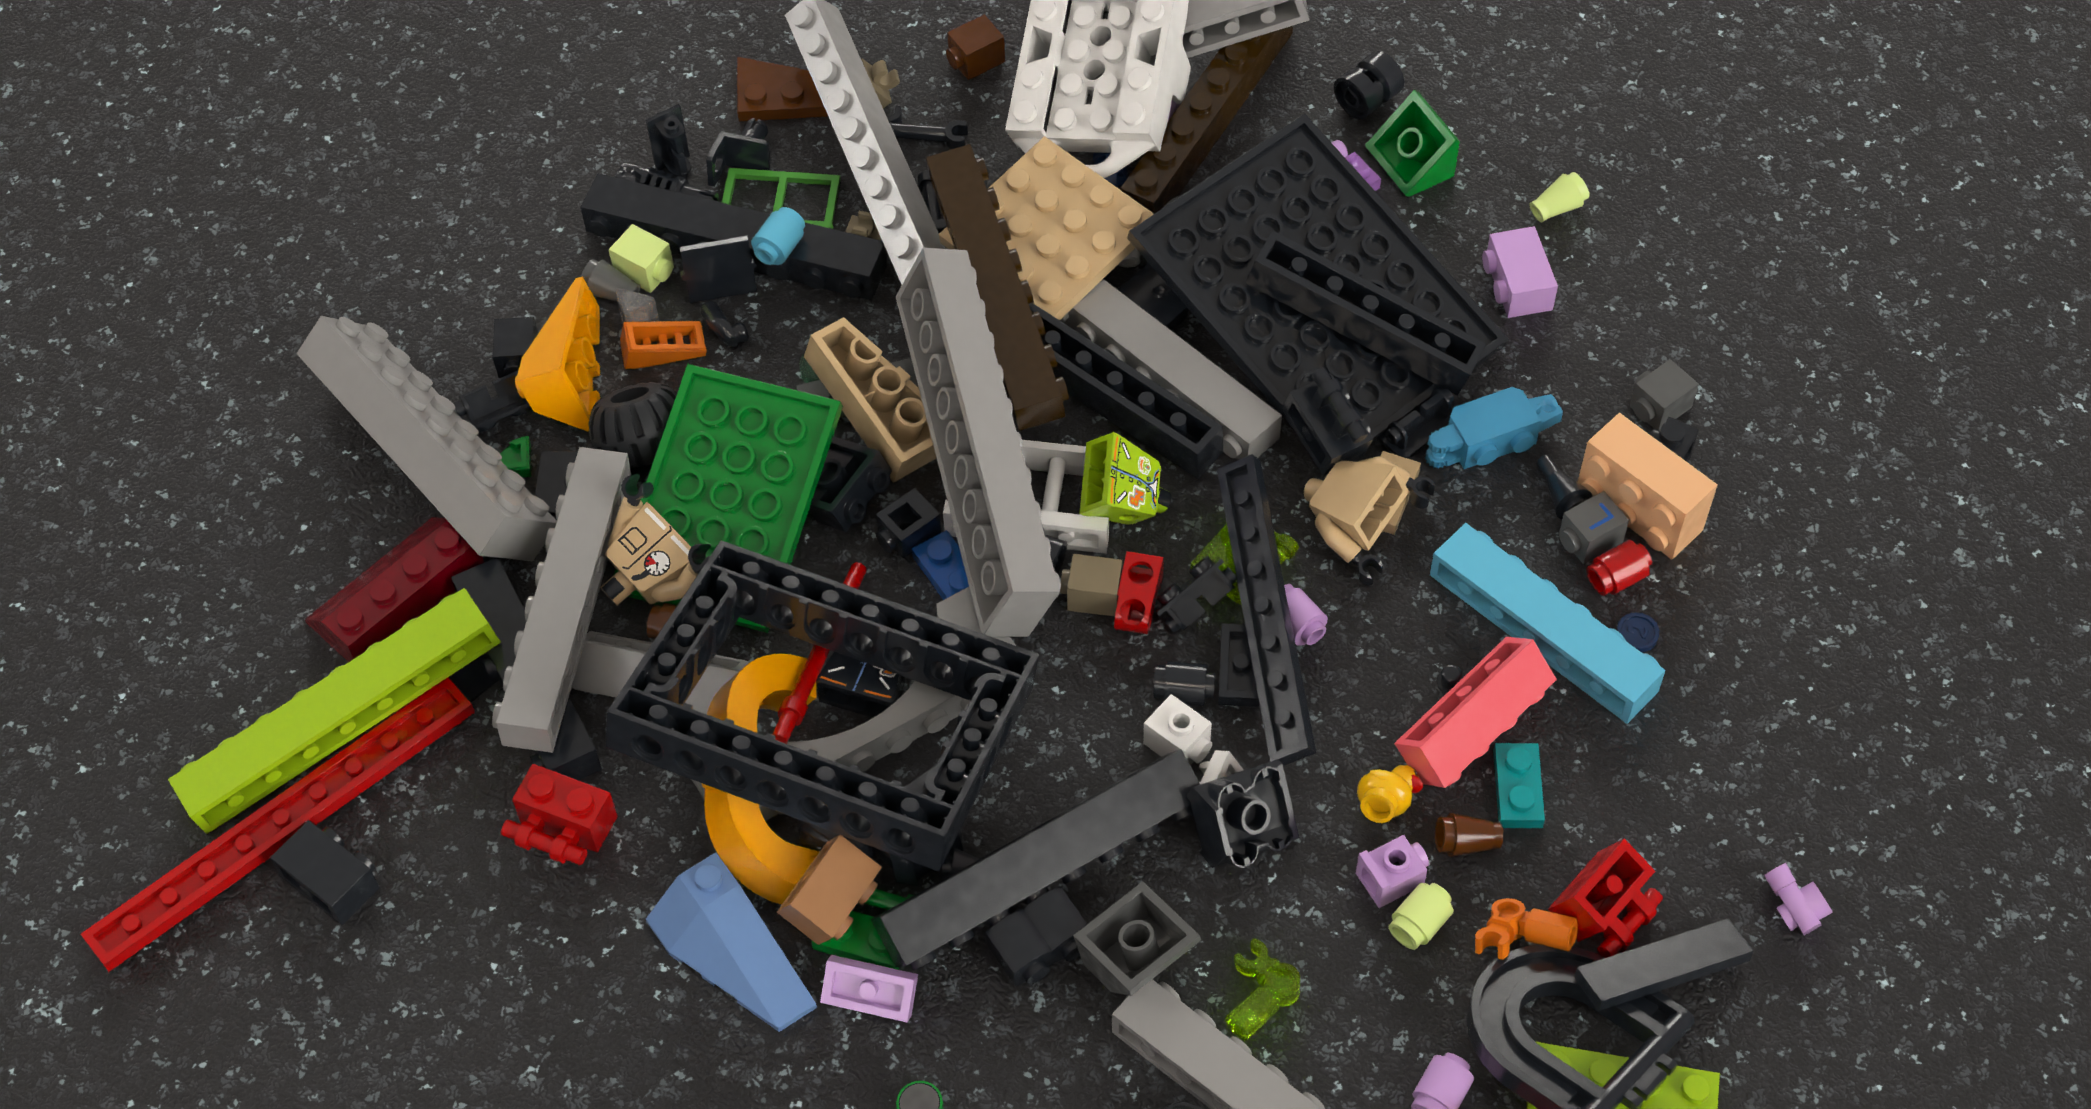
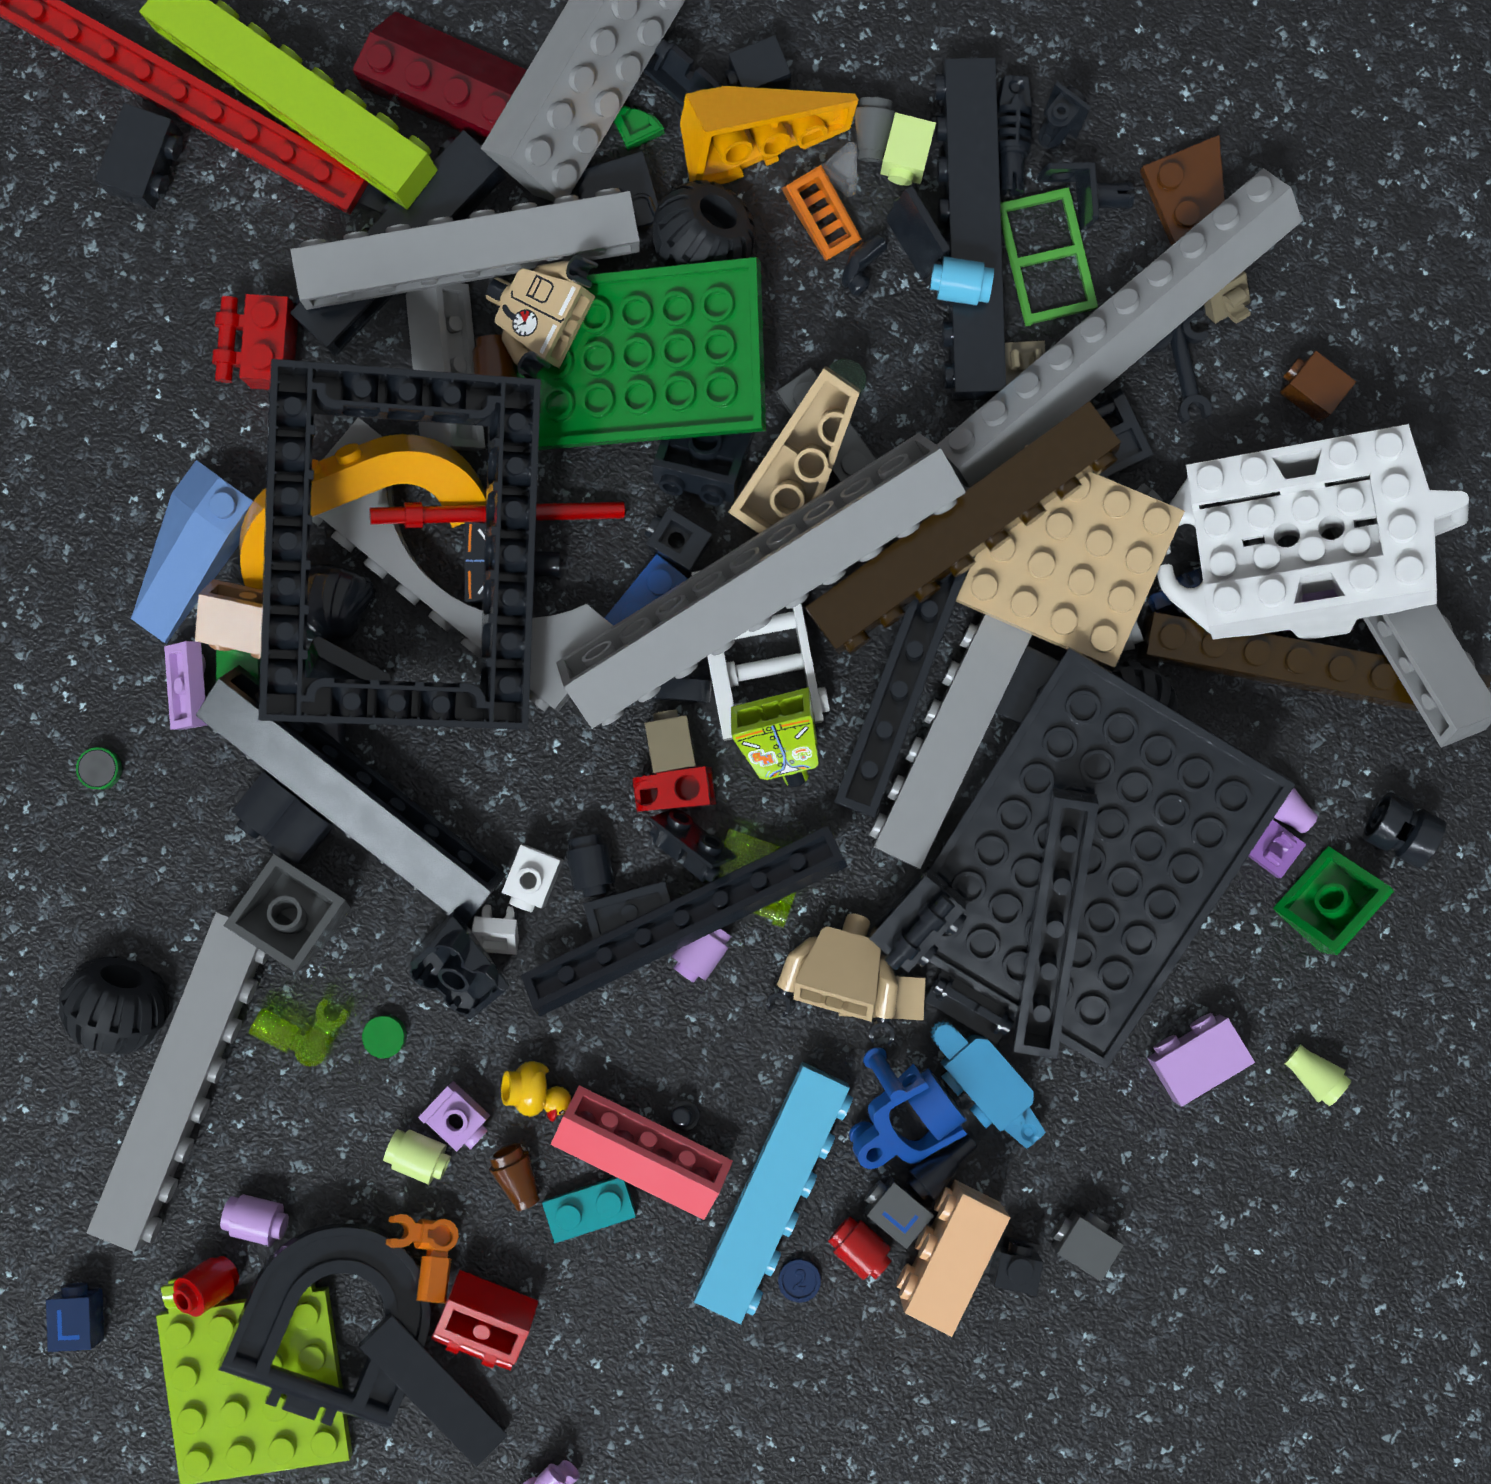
camera: 75 degrees right, 30 degrees up
(1290, 918) = (384, 1036): none -> green tile
(1492, 473) = (927, 1096): none -> blue piece

